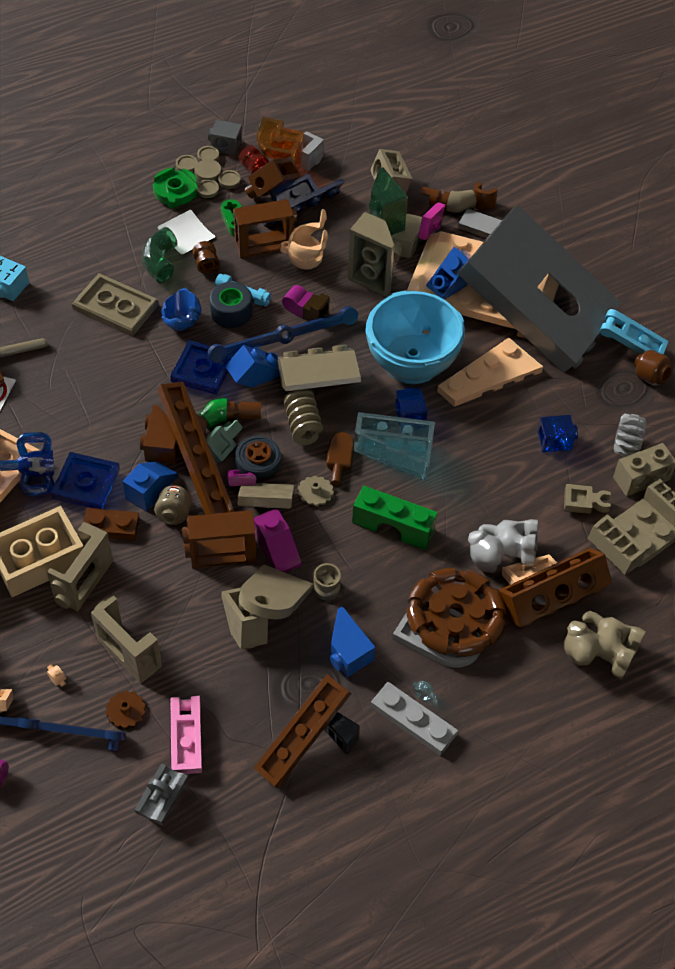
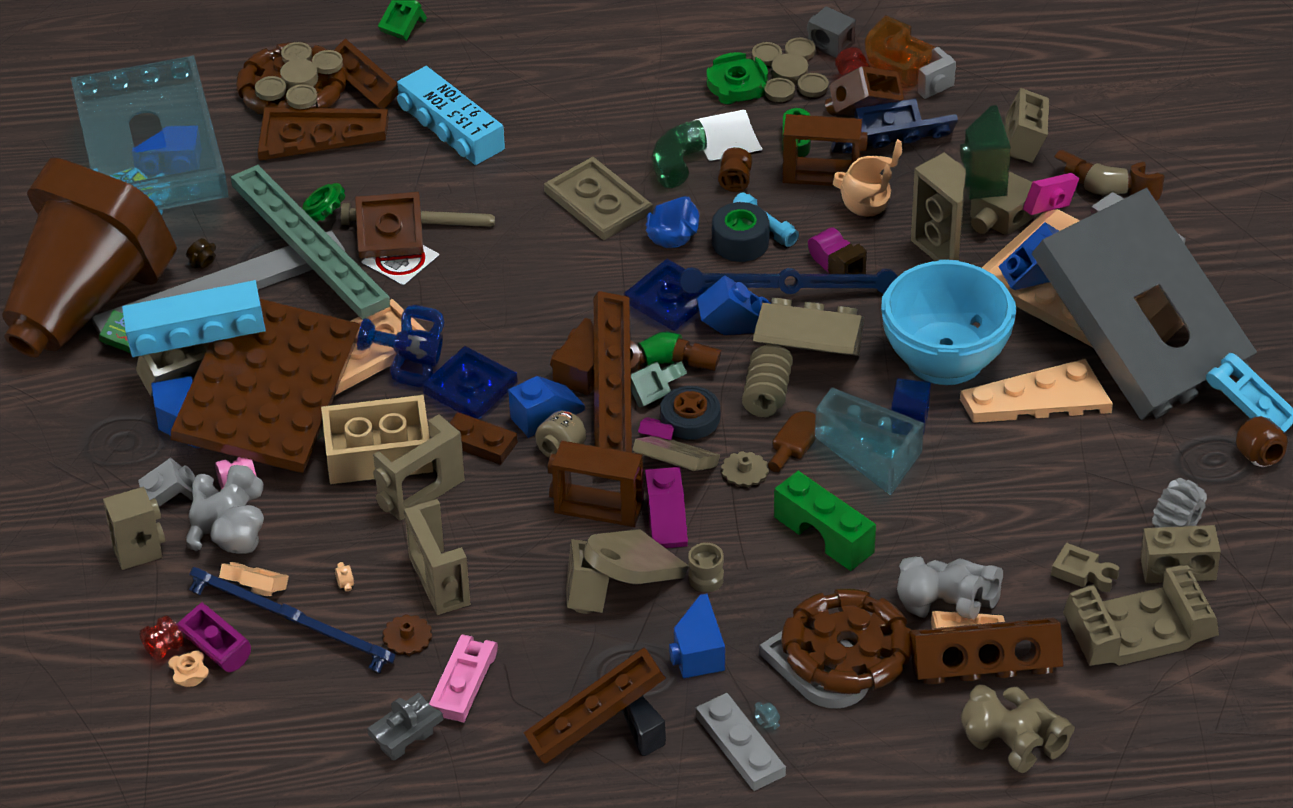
camera: 25 degrees right, 10 degrees down
(557, 433) = (1087, 484): clear blue brick -> none

